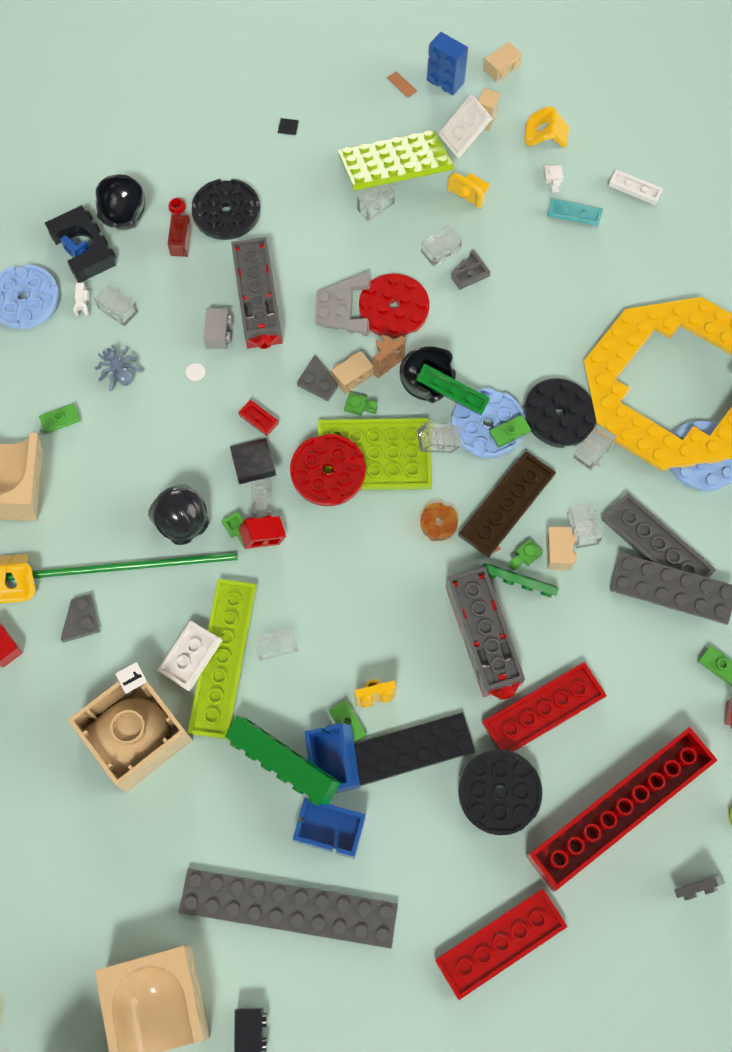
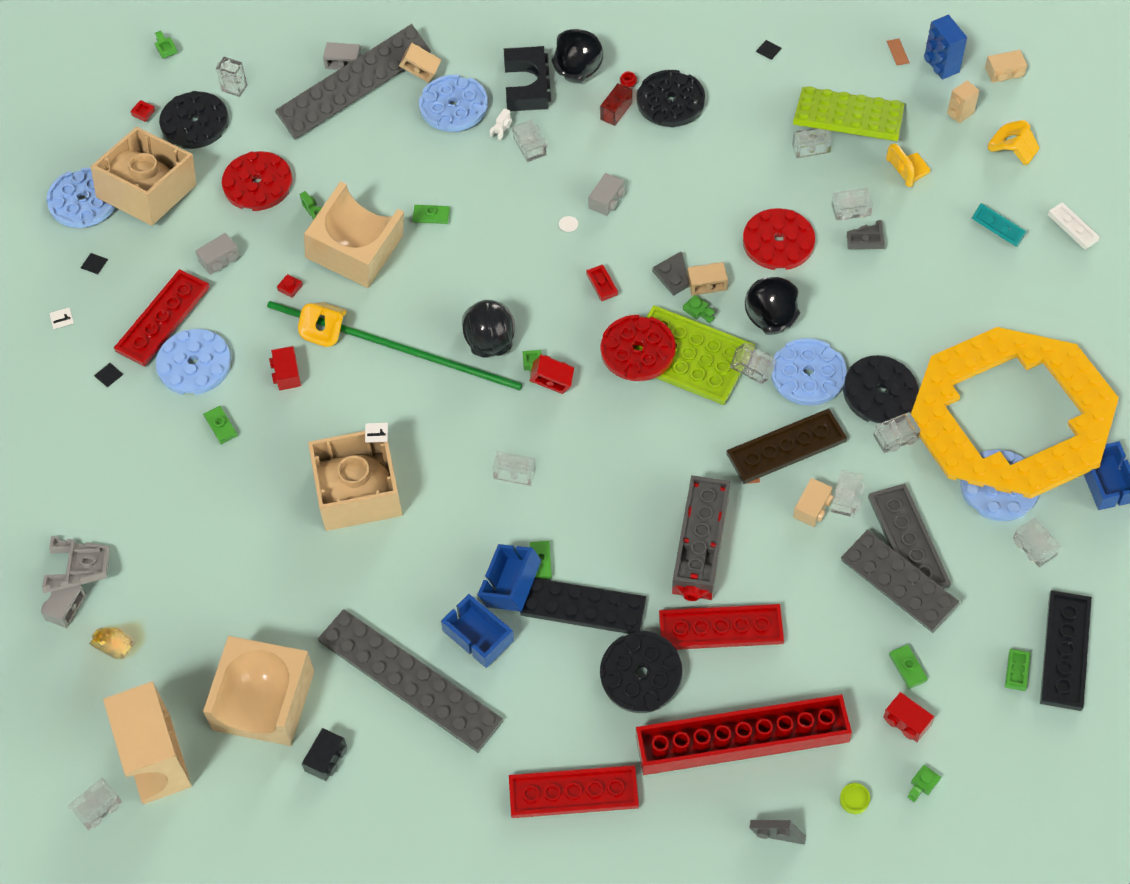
camera: 30 degrees right, 10 degrees down
(72, 247) = (517, 78): blue bracket -> none
(80, 619) = (361, 380): dark grey wing -> none
(119, 369) = (502, 191): sand blue animal -> none
(189, 655) = (436, 445): white tile -> none
(220, 679) = (462, 462): lime plate -> none
(252, 461) = (575, 313): black tile -> none
(256, 293) = (656, 177): dark grey piece -> none
(262, 498) = (568, 346): clear brick -> none
(282, 760) = (467, 557): green brick -> none
(334, 305) = (725, 215): light grey wing -> none
(374, 692) = (576, 543): yellow plate -> none
(387, 358) = (745, 267): medium nougat piece -> none
(443, 512) = (715, 444): clear orange plate -> none
(452, 389) = (787, 326): green plate -> none
(465, 126) = (932, 108): white tile -> none
(510, 431) = (823, 385): bright green plate -> none
(526, 554) = (781, 495): bright green plate -> none
(527, 582) = (765, 518): green plate -> none
(553, 175) = (997, 185): white plate -> none

